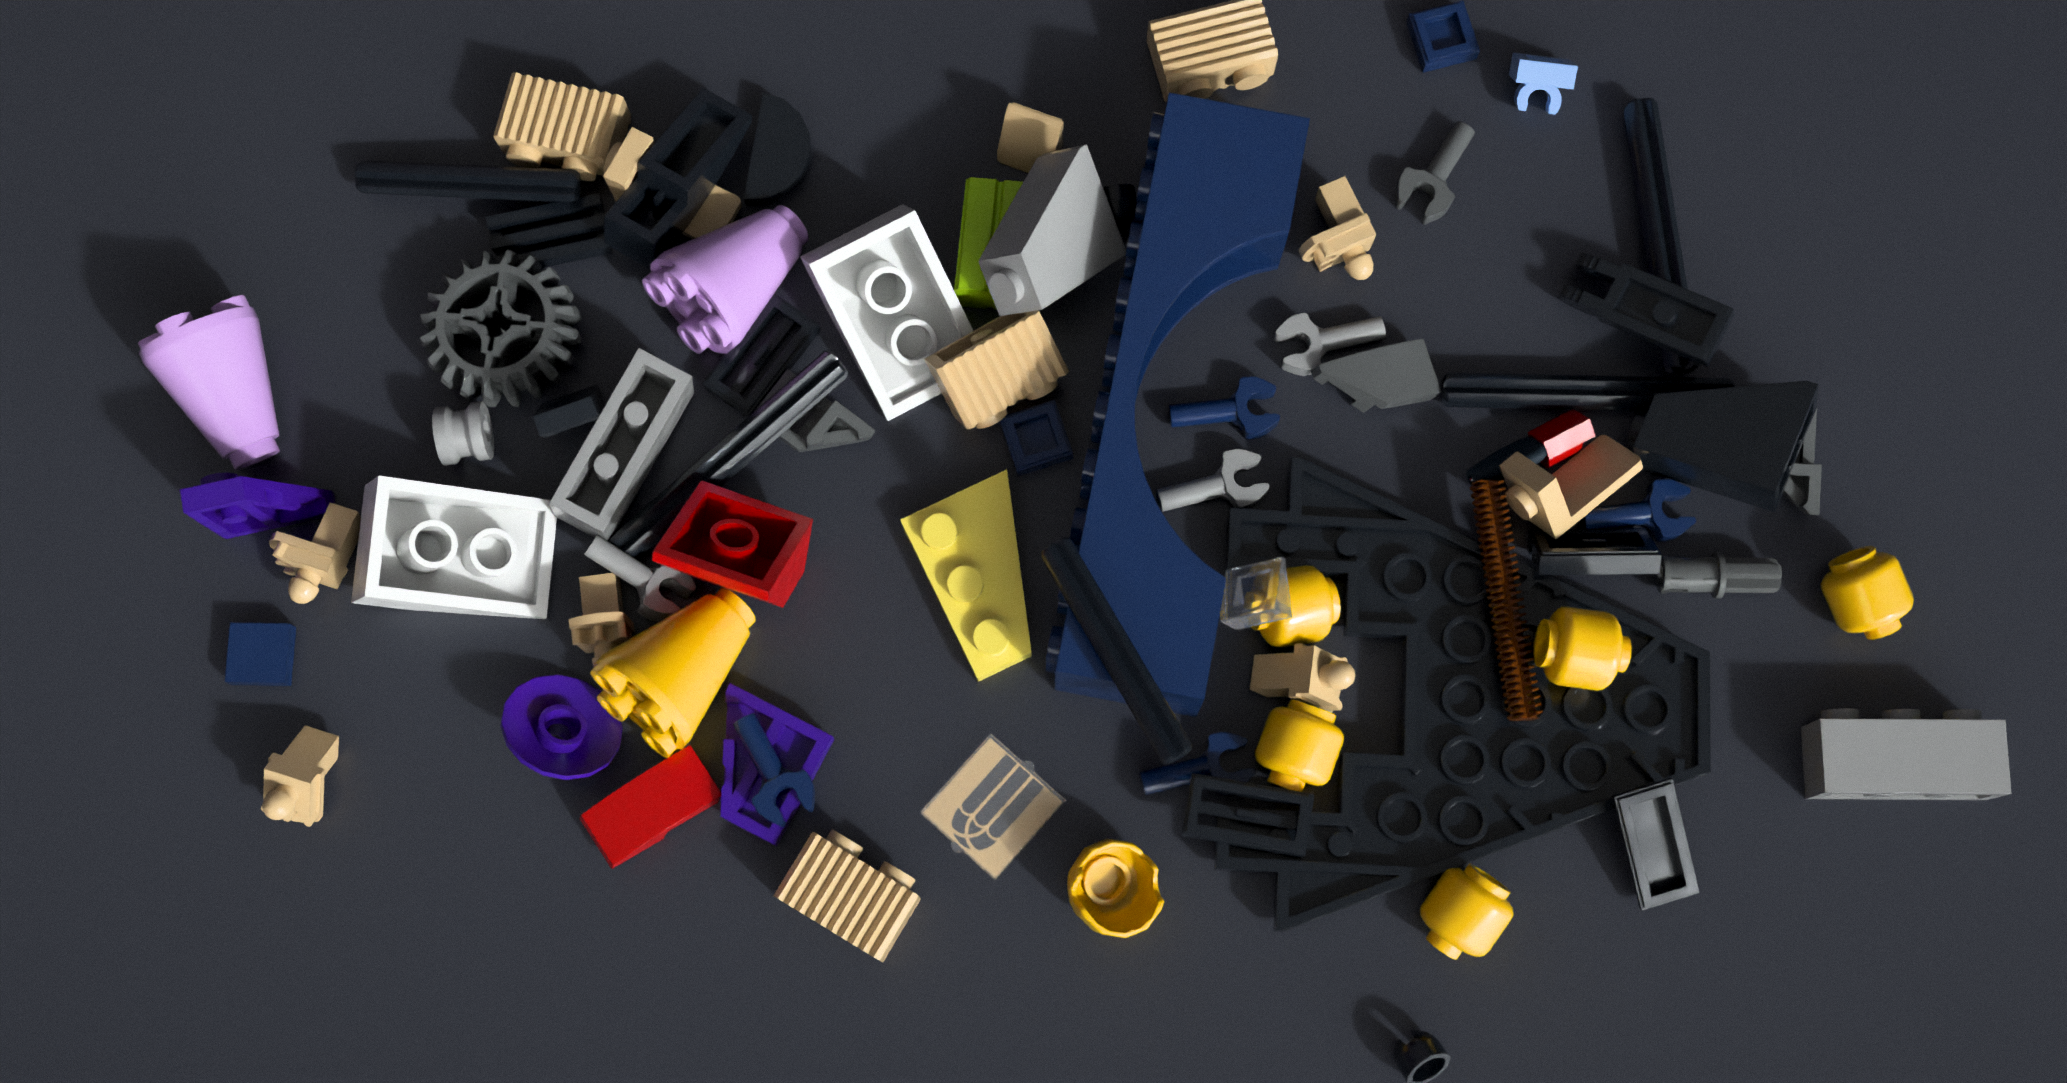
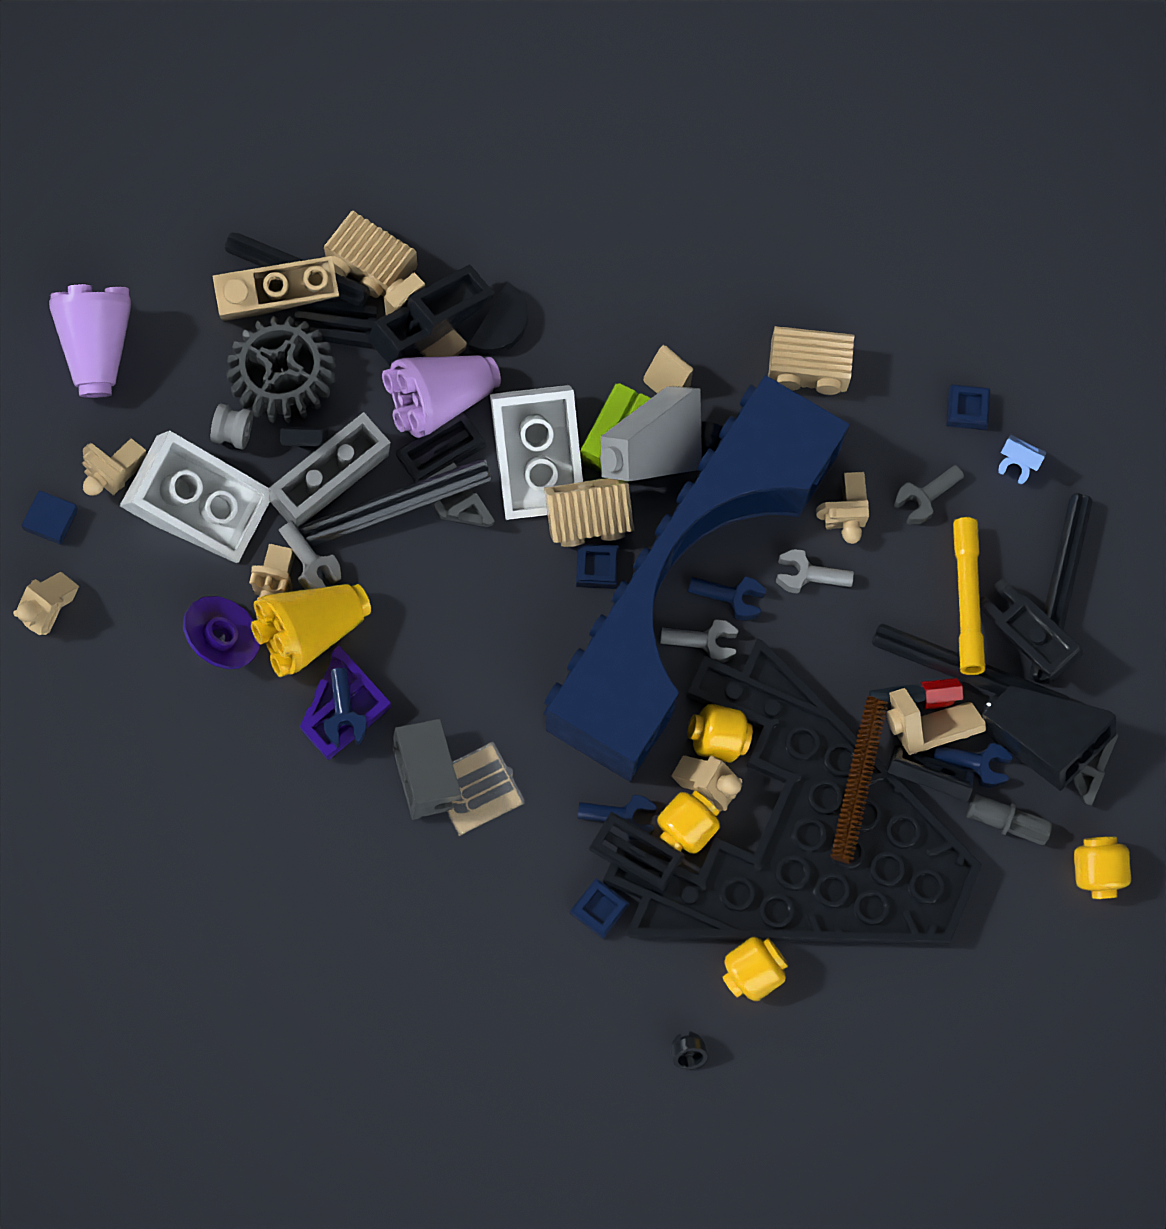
camera: 15 degrees right, 5 degrees down
(249, 505) = (82, 421): dark purple wing -> none
(447, 219) = (274, 288): none -> tan slope
(650, 806) = (258, 703): red slope -> none
(737, 544) = (377, 559): red slope -> none
(849, 895) = (362, 807): tan brick -> none
(915, 808) = (425, 768): none -> dark grey hinge
(975, 572) = (523, 634): light yellow wing -> none
(1114, 888) = (533, 866): yellow hair -> none
(1116, 651) = (589, 710): black axle -> none
(1224, 907) = (599, 908): none -> dark blue tile
(1256, 594) = (696, 714): clear slope -> none
(1383, 375) = (839, 609): dark grey slope -> none
(1575, 347) = (970, 638): none -> yellow piece
(1581, 648) = (894, 827): yellow head -> none
(1655, 844) = (896, 973): tile -> none
(1905, 756) = (1084, 981): light grey brick -> none

